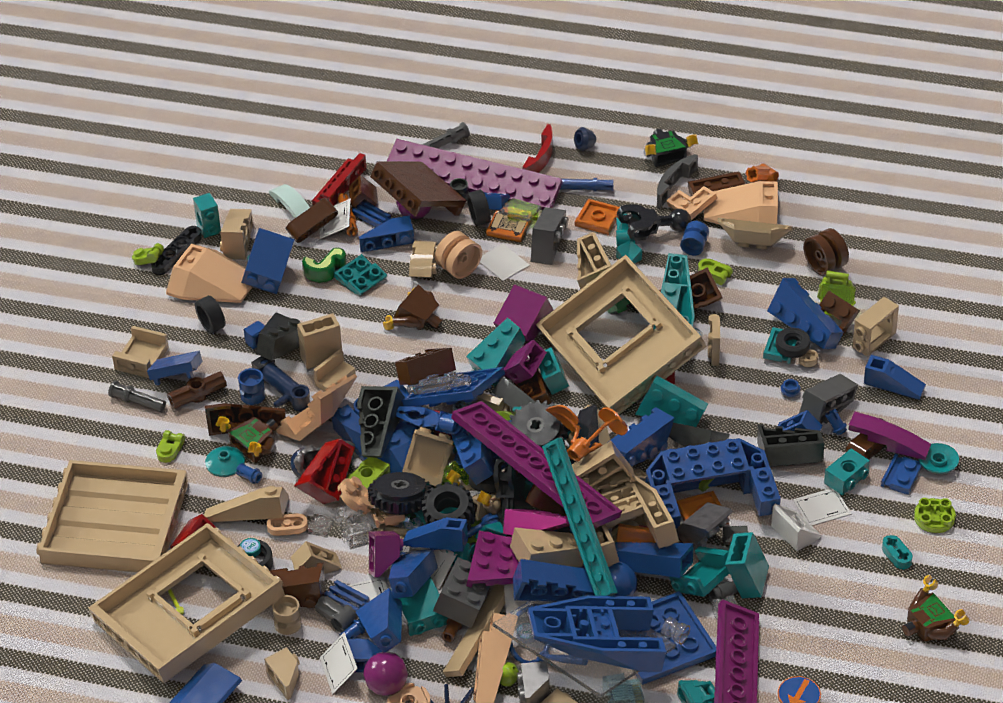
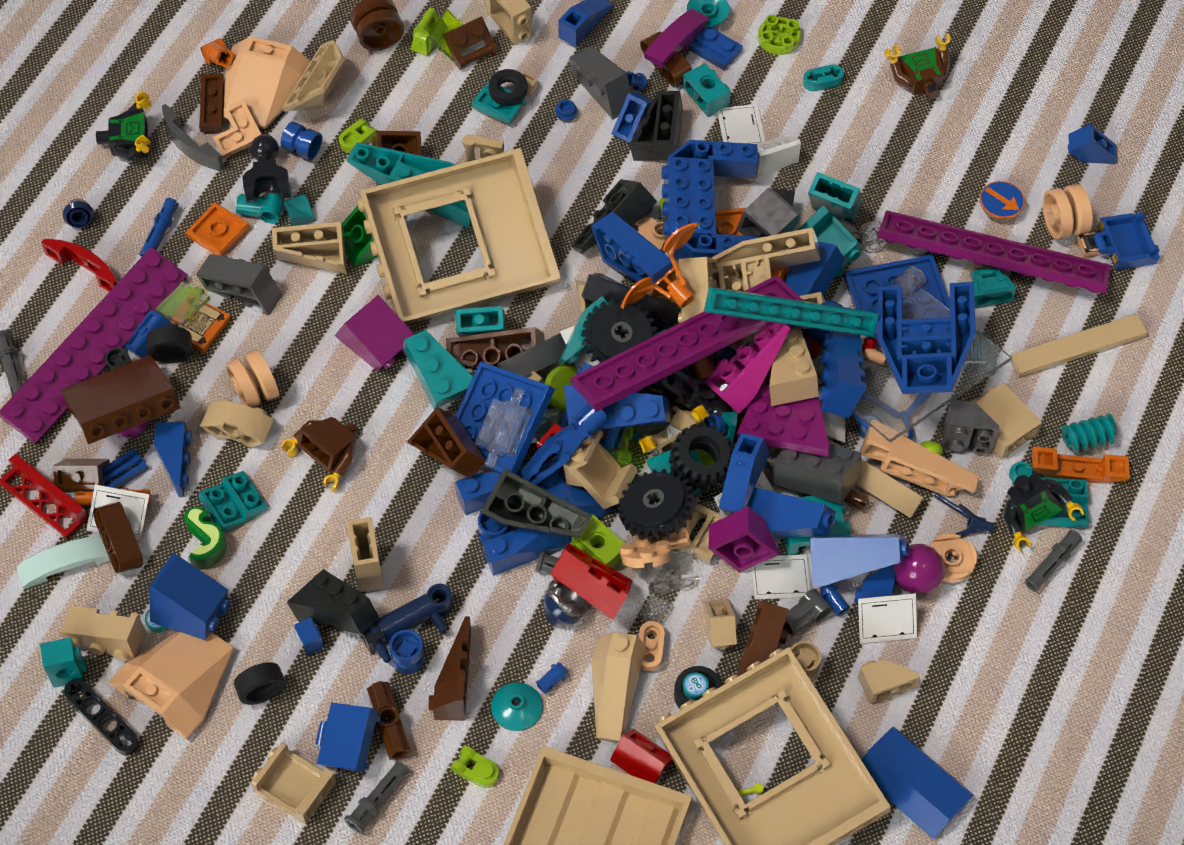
camera: 80 degrees left, 15 degrees up
(148, 255) = (102, 761): lime plate -> none
(251, 436) = (498, 662): torso -> none
(318, 411) = (481, 573): light nougat wedge -> none
(332, 370) = (406, 557): tan panel -> none
(348, 593) = (794, 585): blue tile -> none
(503, 262) = (264, 337): white sticker -> none
(521, 369) = (476, 341): magenta torso -> none
(674, 401) = (571, 218): teal wedge -> none
(798, 310) = (469, 67): blue wedge -> none

